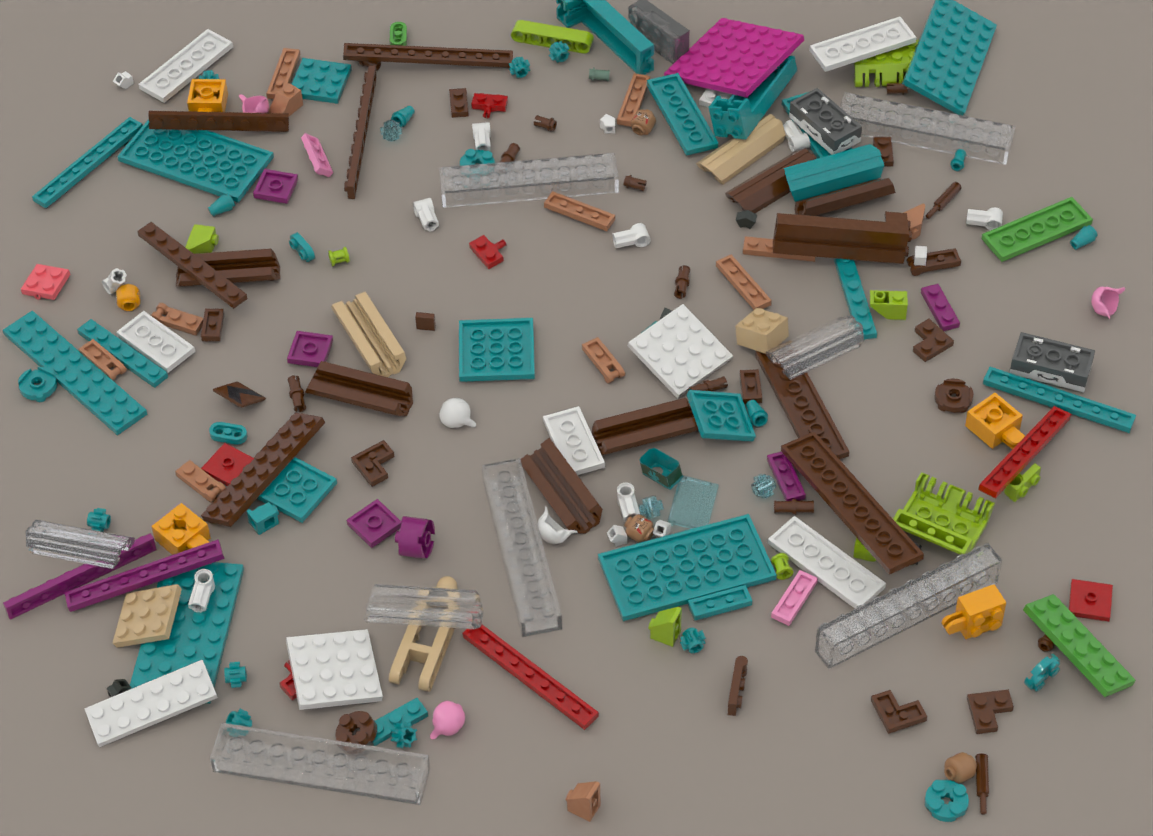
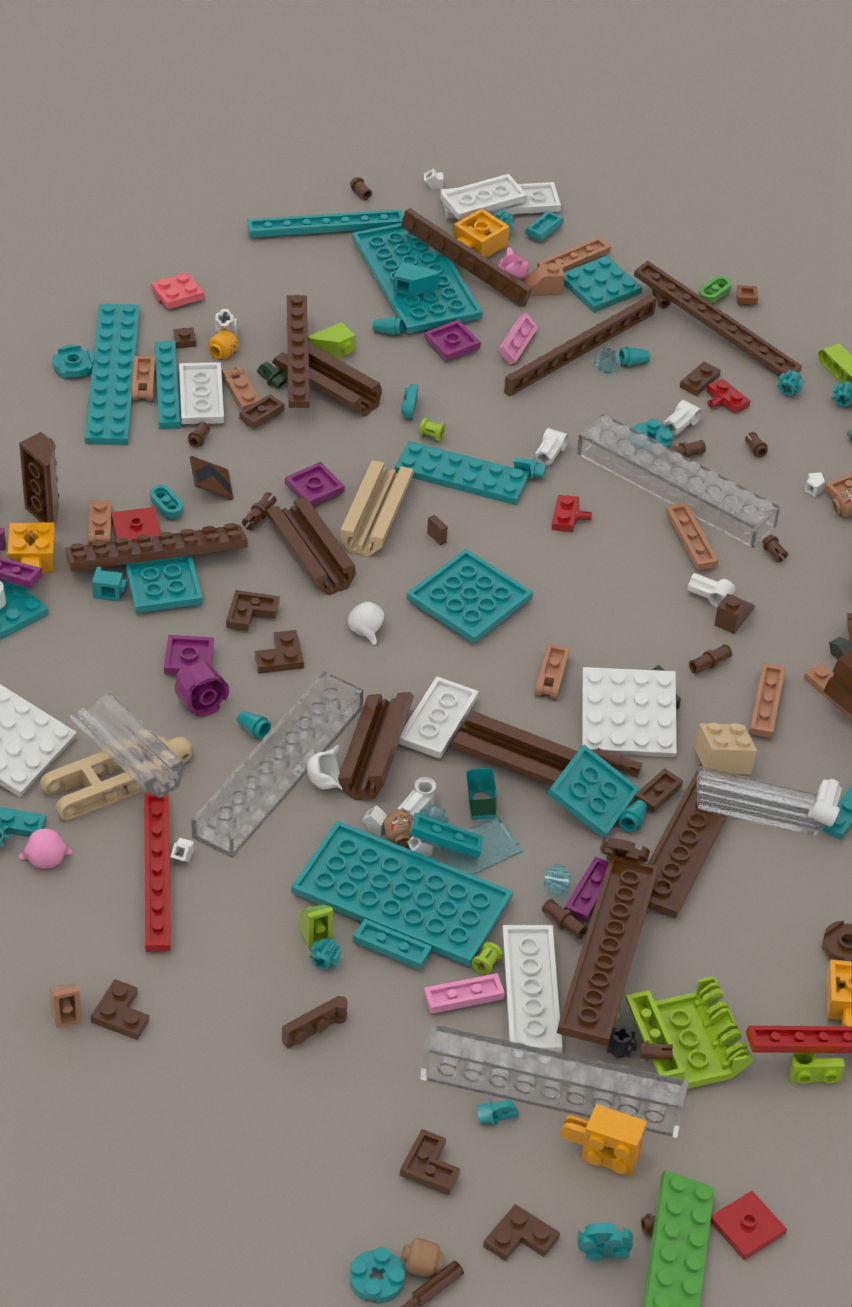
camera: 40 degrees right, 5 degrees down
(76, 119) = (357, 184): none -> reddish brown pin
(92, 311) = (184, 337): none -> reddish brown plate
(145, 479) = (39, 477): none -> reddish brown slope
(178, 70) = (484, 195): none -> white plate
(187, 295) = (272, 375): none -> dark green piece
(192, 374) = (197, 437): none -> reddish brown pin
(206, 160) = (415, 280): none -> teal slope
(237, 64) = (544, 226): none -> teal plate
(391, 271) = (464, 472): none -> teal plate
(421, 25) = (747, 295): none -> dark orange plate
(431, 237) = (532, 466): none -> teal piece
(431, 476) = (285, 656): none -> reddish brown plate
(470, 534) = (255, 724): none -> teal cone
(529, 648) = (183, 849): none -> white piece
(614, 782) = (115, 1014): none -> reddish brown plate
(661, 243) = (732, 613): none -> reddish brown slope
(676, 510) = (446, 835): none -> teal plate
(785, 436) = (624, 849): none -> reddish brown plate
(859, 322) = (824, 807): none -> white piece
(891, 655) = (499, 1111): none -> teal piece
(944, 543) = (656, 1051): none -> reddish brown pin

